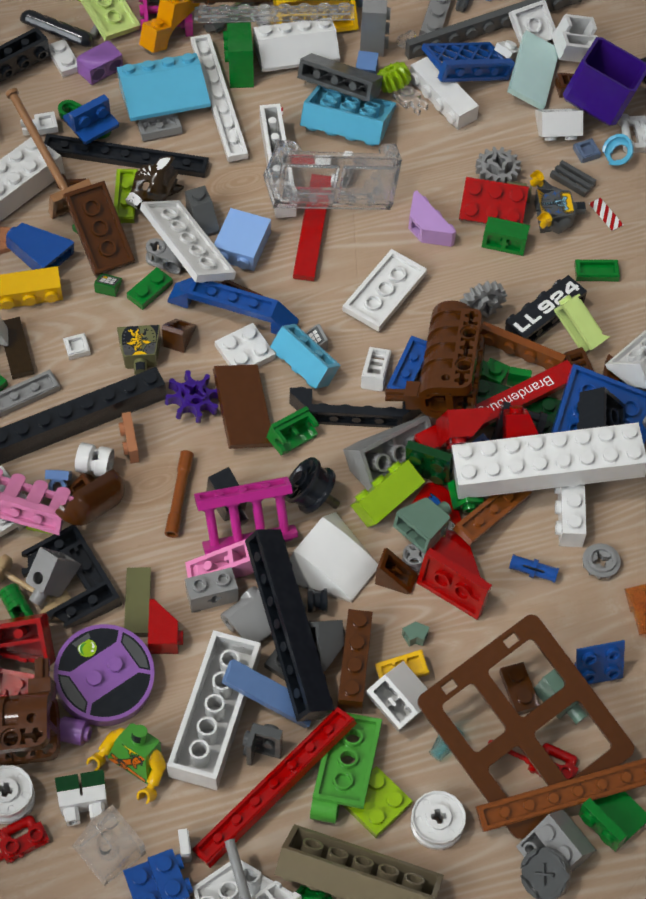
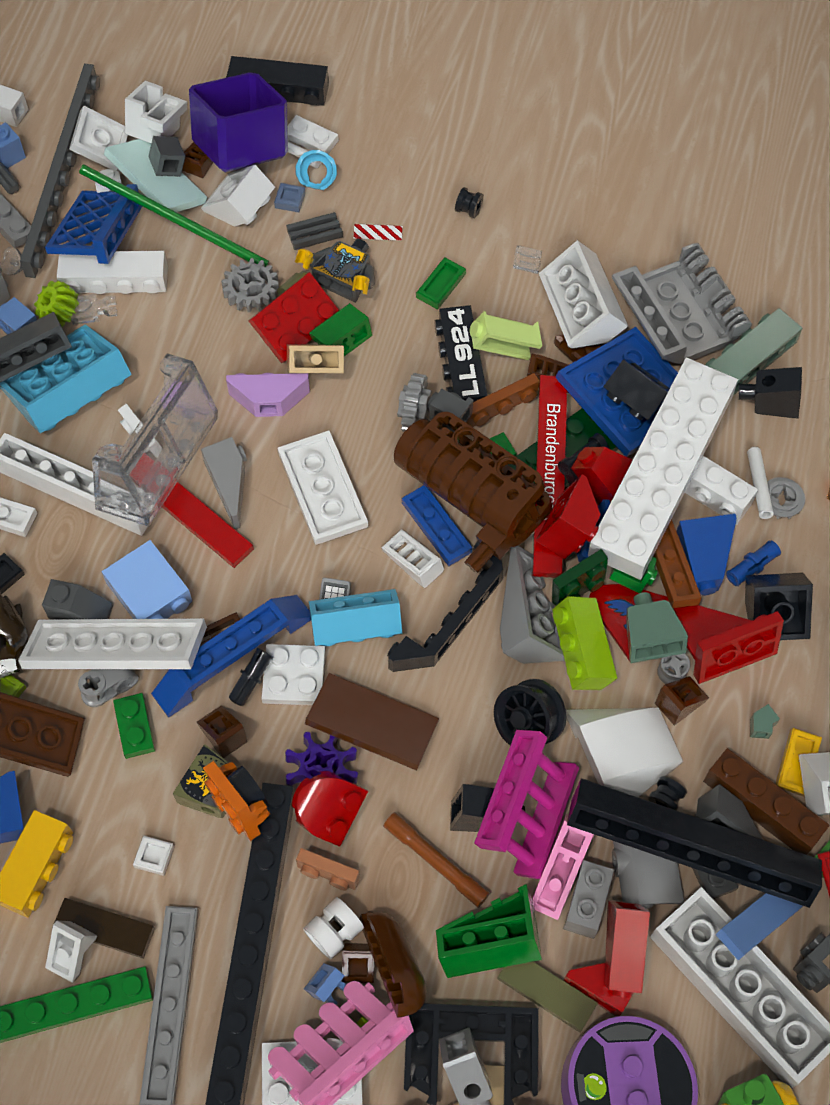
camera: 55 degrees left, 5 degrees up
(107, 284) = (93, 768): green slope -> none
(130, 351) = (238, 796): none -> orange piece
(146, 546) = (491, 938): none -> green wedge
(167, 411) = (327, 805): none -> red slope
(187, 615) = (625, 947): none -> slope
(224, 325) = (250, 677): none -> black axle
(292, 431) = (441, 690): green hinge -> none
(350, 236) = (227, 472): none -> light grey slope
(468, 227) = (315, 358): none -> tan slope
(492, 320) = (450, 402): none -> dark grey brick
(507, 95) = (170, 215): none -> green piece
(512, 597) = (784, 593): none -> black slope
(517, 375) = (524, 432): green tile -> none
(518, 533) = (707, 549): none -> blue slope
(550, 64) = (166, 156): none -> dark grey brick
(598, 538) = (760, 482): none -> white piece

